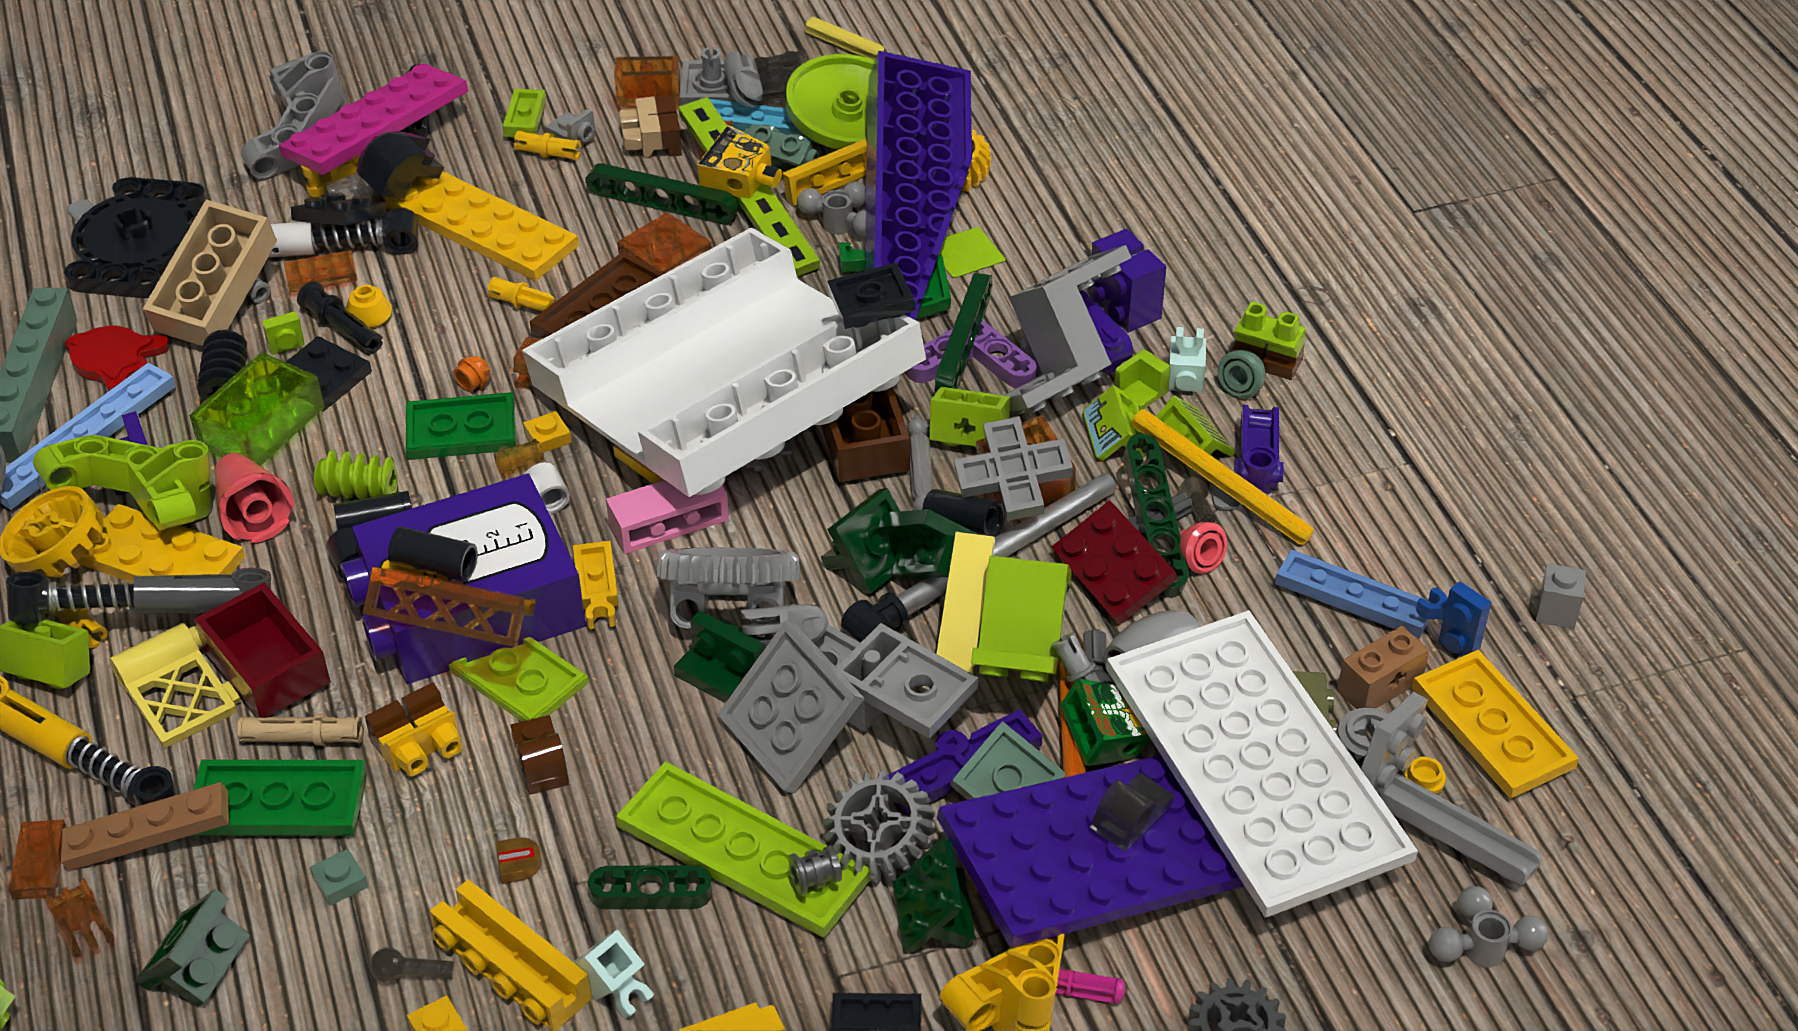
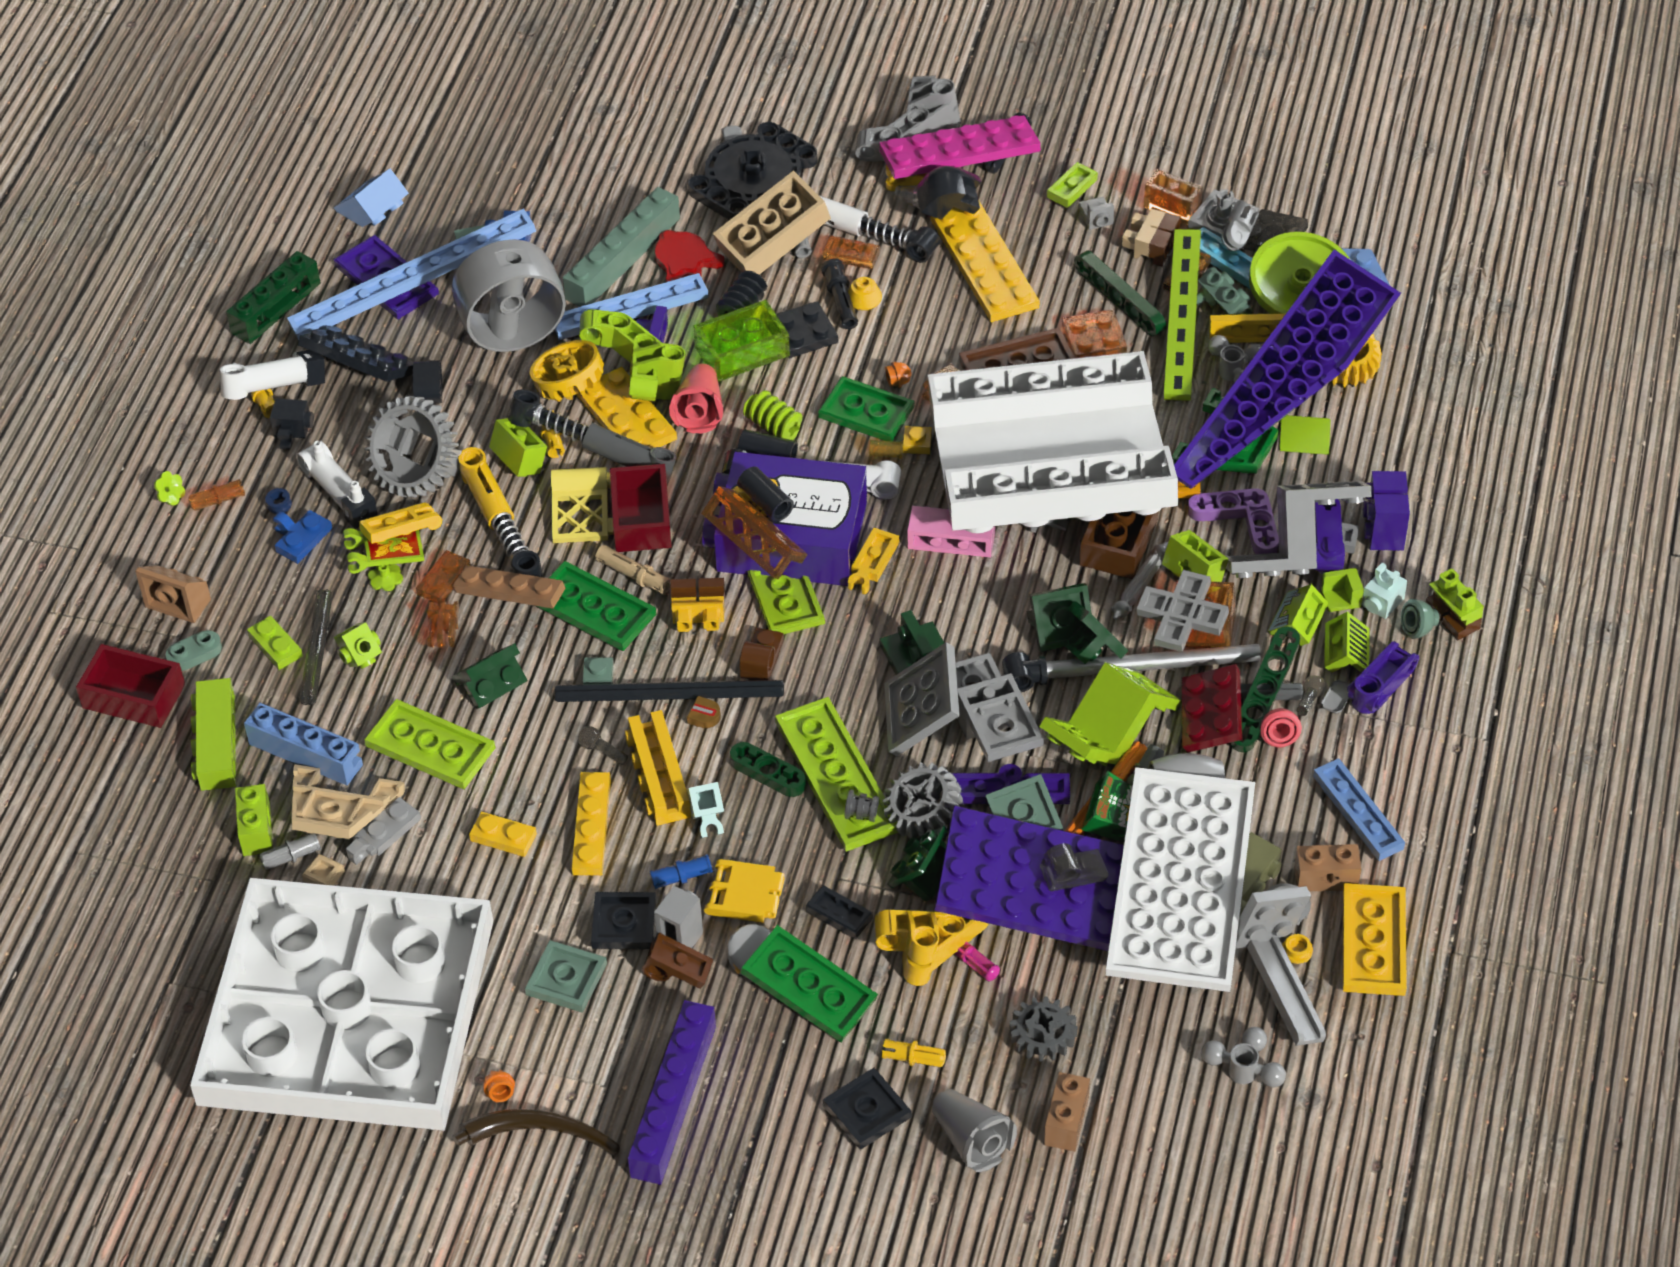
camera: 35 degrees right, 5 degrees up
(283, 332) = (796, 289): lime plate -> none
(338, 210) = (889, 211): black plate -> none
(447, 856) = (669, 690): none -> black axle
(519, 294) = (968, 328): yellow axle -> none
(547, 145) = (1070, 218): yellow pin -> none
(726, 571) = (948, 593): light grey piece -> none
(737, 164) = (1178, 295): yellow torso -> none
(807, 617) = (966, 646): light grey arm -> none
(842, 38) = (1351, 220): light yellow axle -> none
(871, 296) = (1160, 443): black plate -> none
(964, 332) = (1240, 497): dark green beam -> none
(965, 599) = (1077, 686): light yellow tile -> none
(972, 512) = (1138, 629): black pin -> none
(1074, 659) = (1123, 761): light grey axle -> none
(1223, 477) = (1336, 685): yellow axle -> none
(1462, 614) = (1405, 860): blue plate -> none
(1560, 596) = (1497, 881): light grey brick -> none

